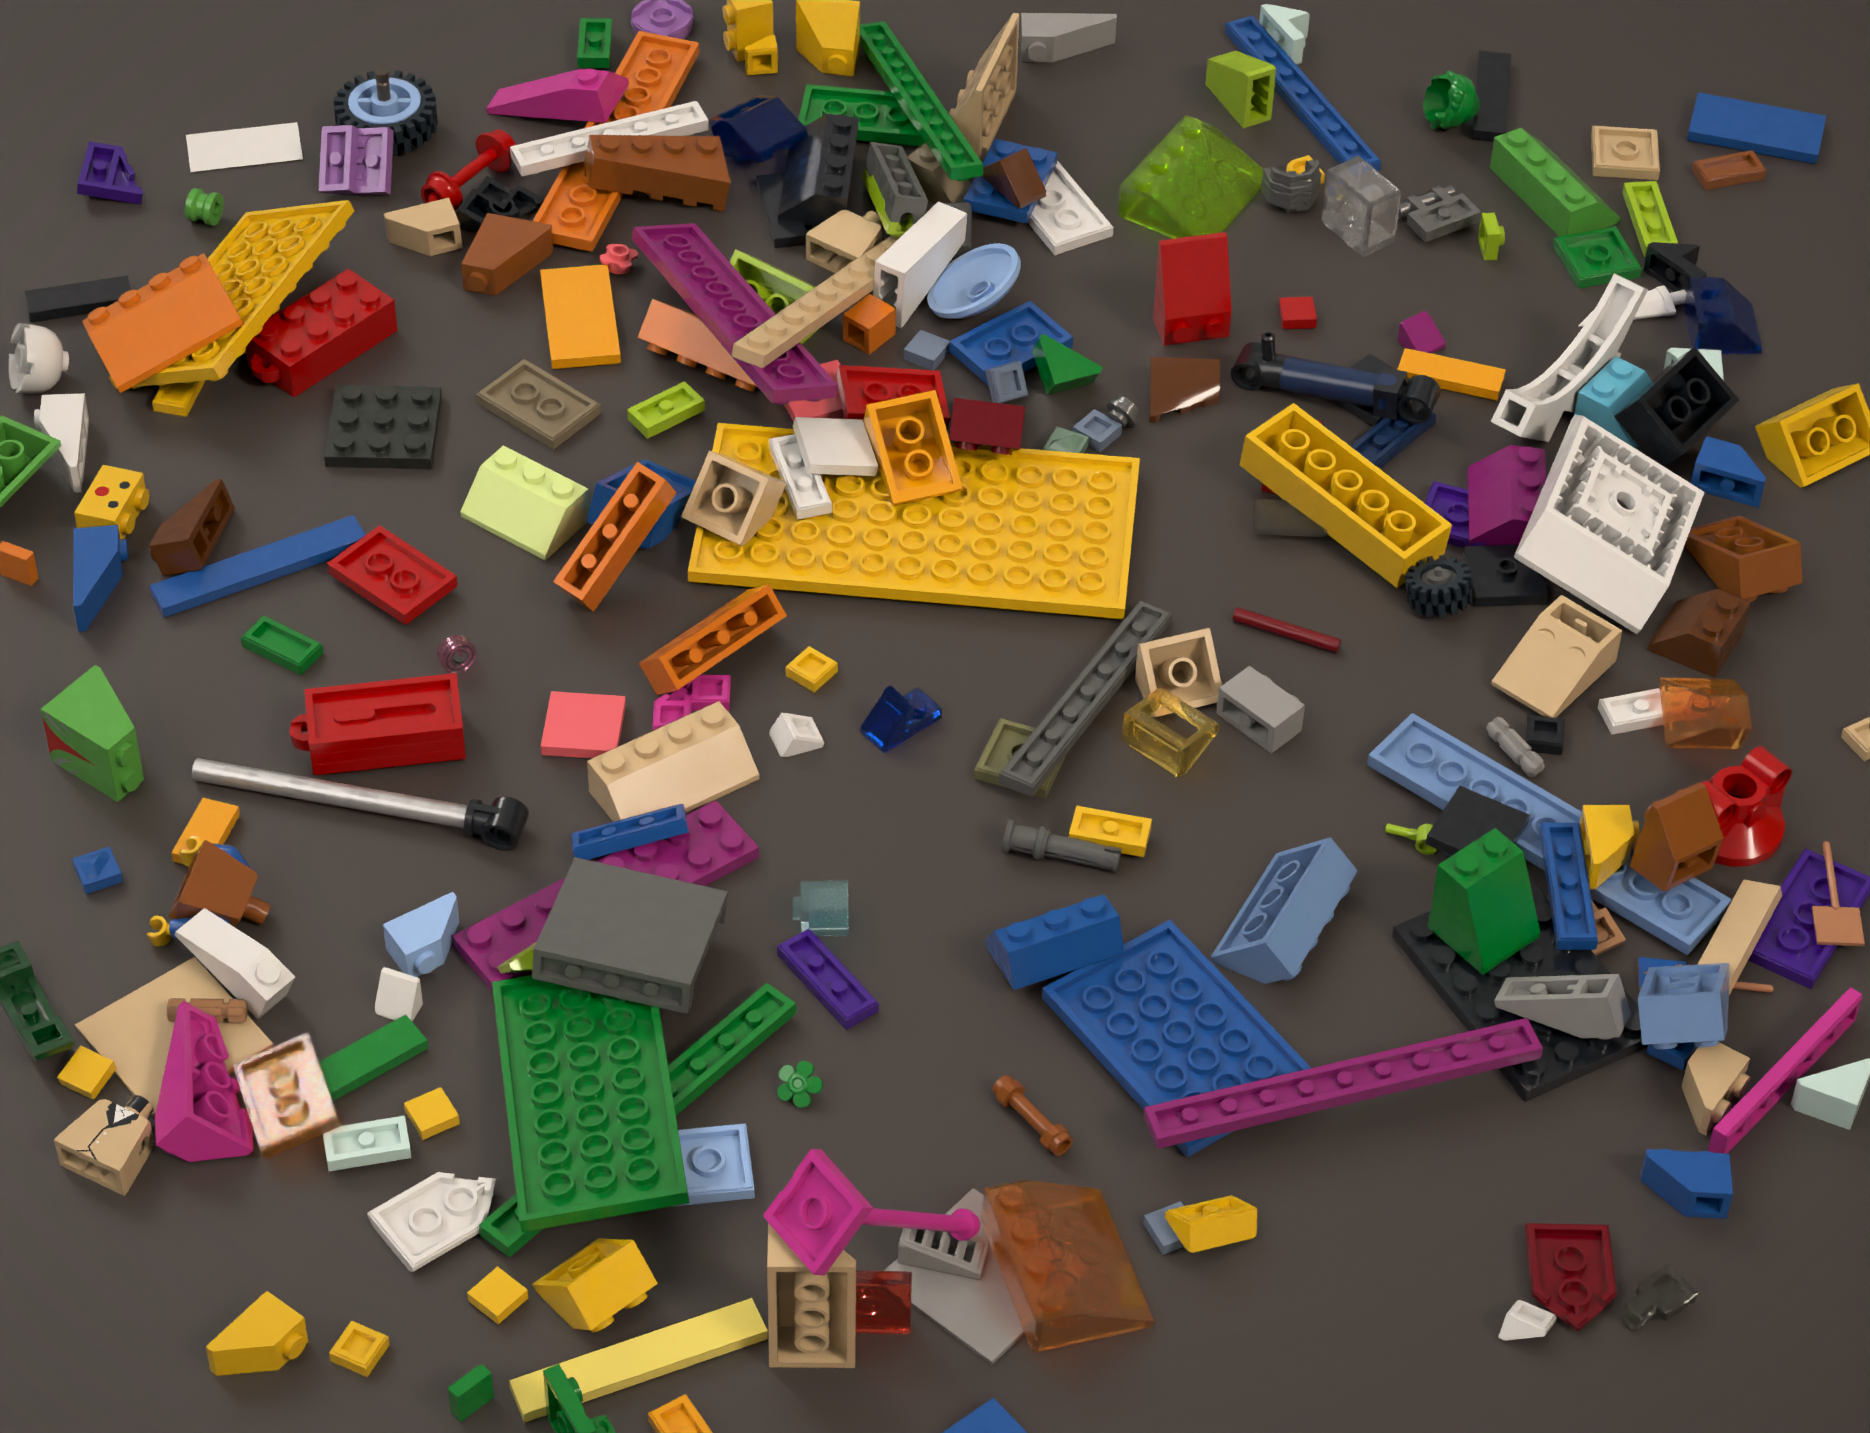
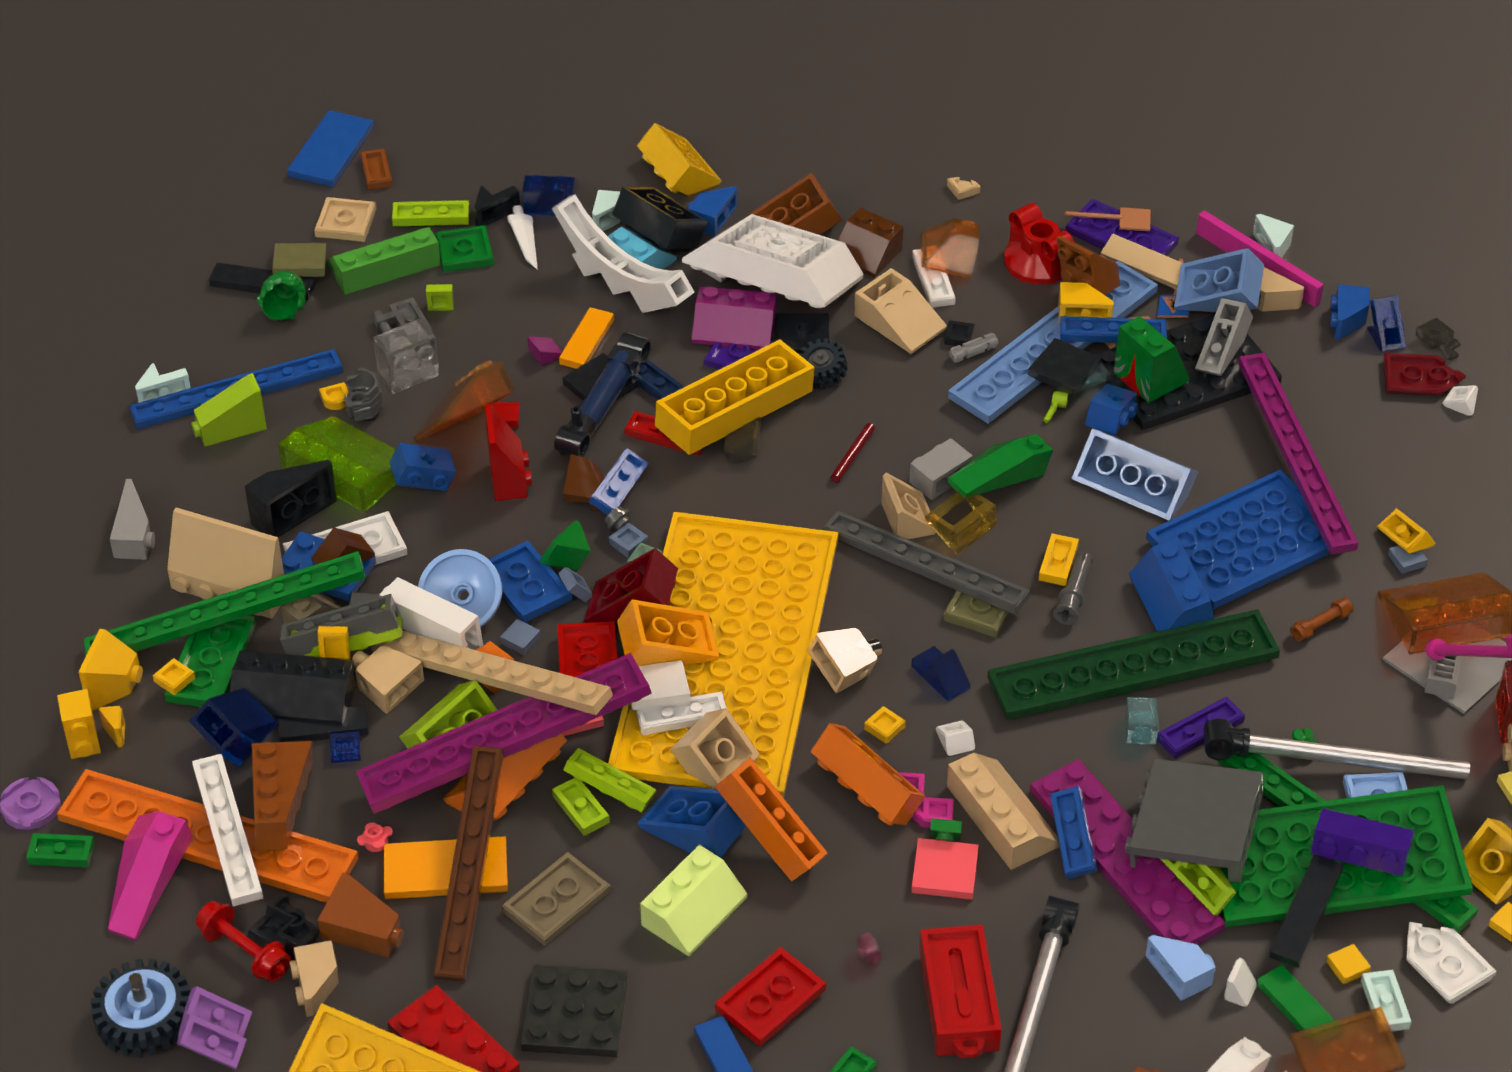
camera: 85 degrees left, 0 degrees up
(493, 1050) = (1306, 911): none -> black tile
(561, 309) = (468, 864): none -> reddish brown tile
(577, 1088) = (1362, 842): none -> dark purple brick
(634, 715) = (946, 829): none -> green plate
(697, 424) = (609, 780): none -> lime plate
(750, 229) = (345, 747): none -> clear blue tile
(774, 977) = (1223, 741): none -> flat silver piece
(827, 84) = (174, 676): none -> yellow tile
(866, 185) = (334, 642): none -> yellow tile
(902, 616) = (844, 656): none -> torso
(930, 911) = (1132, 664): none -> dark green plate
(1100, 132) = (290, 496): none -> black slope
(1167, 221) = (422, 467): none -> blue brick
(1187, 410) = (618, 482): none -> tile
(1270, 239) = (481, 386): none -> clear orange slope
(1271, 767) = (1003, 466): none -> green wedge
(1397, 878) = (1111, 409): none -> blue brick
(1533, 112) = (300, 258): none -> olive tile
(1664, 1224) = (1388, 323): none -> clear blue slope

